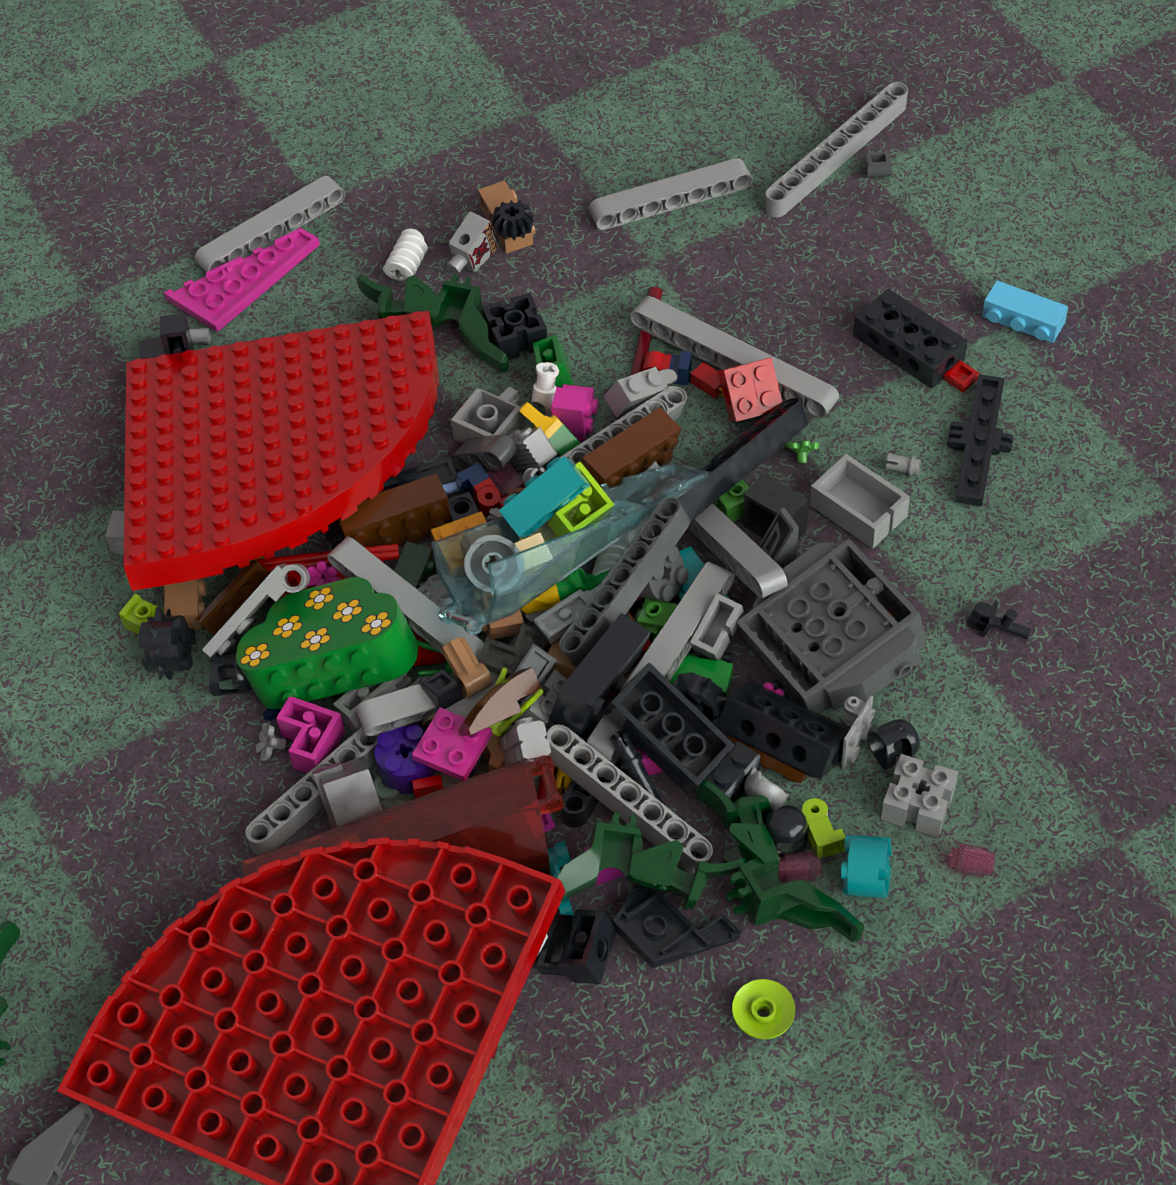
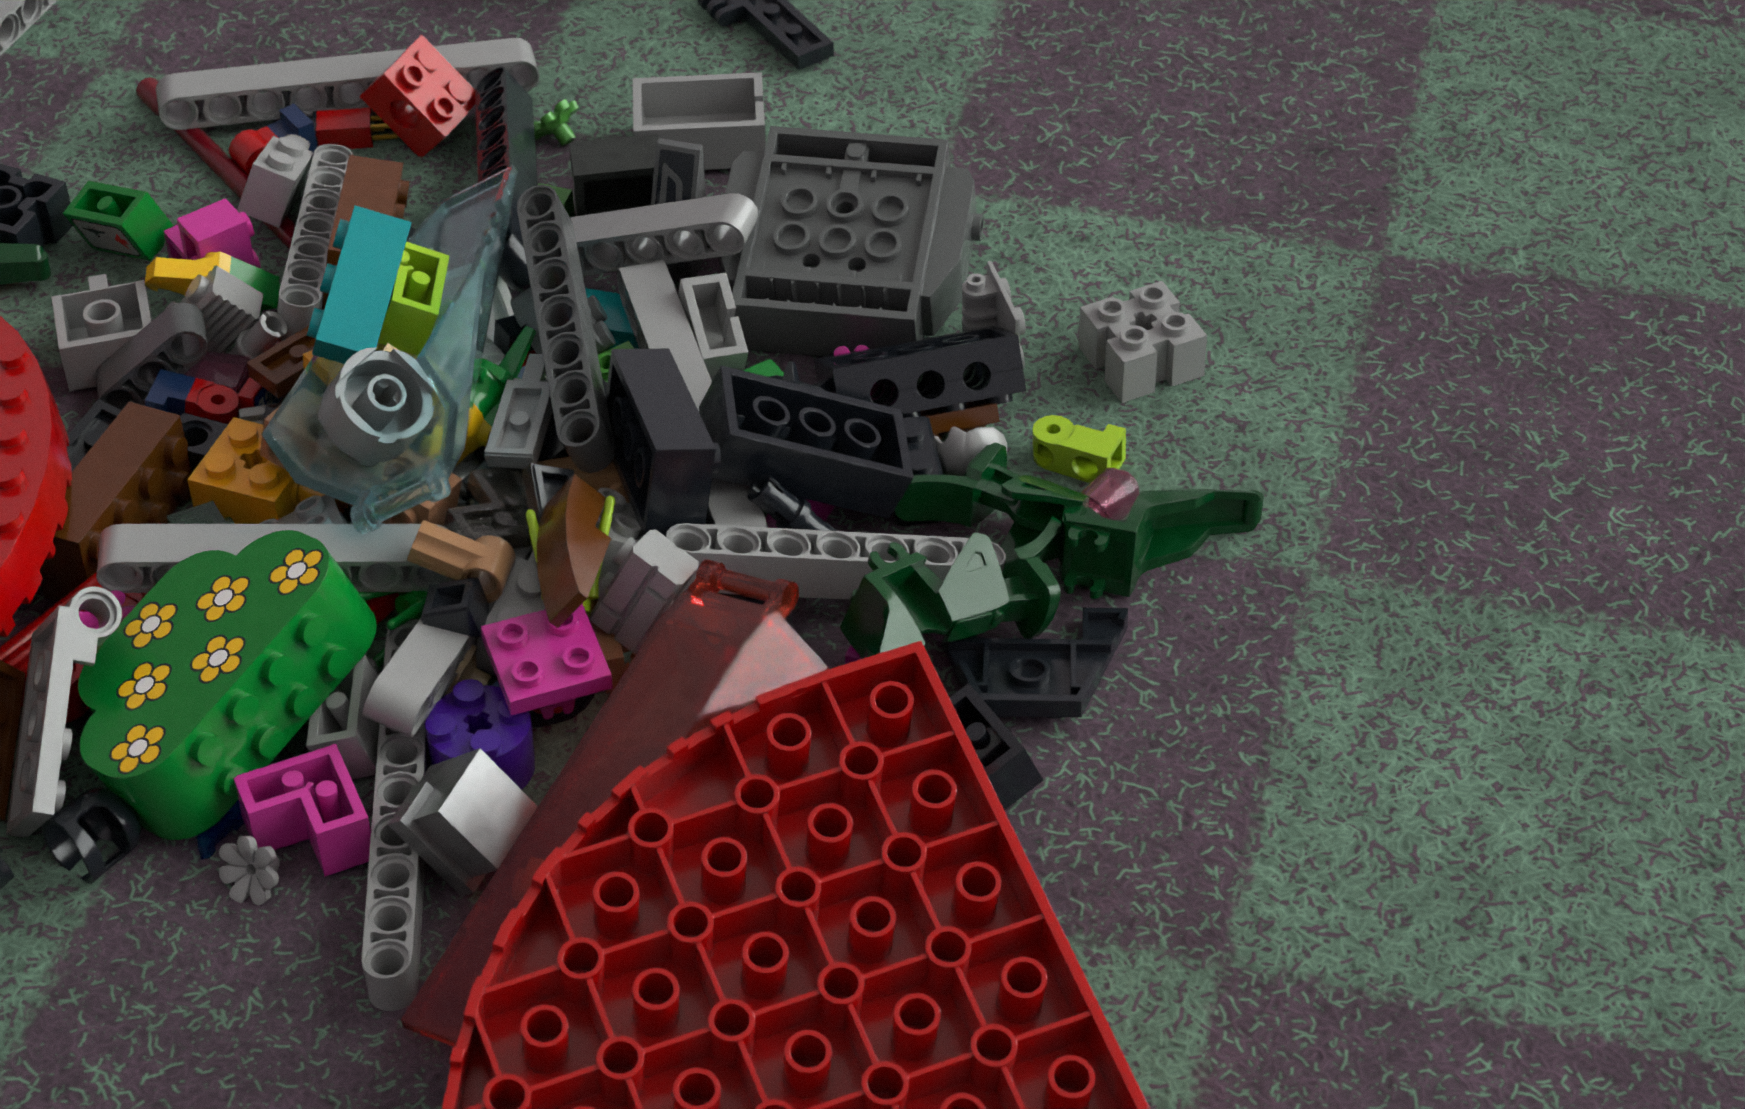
camera: 50 degrees left, 10 degrees down
(427, 785) = (551, 752): red tile -> none
(545, 386) = (145, 234): white piece -> none
(768, 996) = (1257, 656): lime dish -> none
(787, 826) = (1048, 457): black helmet -> none
(867, 866) = (1185, 435): teal brick -> none
(893, 733) = (1049, 302): black helmet -> none
(905, 464) = (704, 63): light grey pin -> none
(972, 860) = (1273, 361): clear pink brick -> none
(984, 617) = (987, 140): black arm -> none

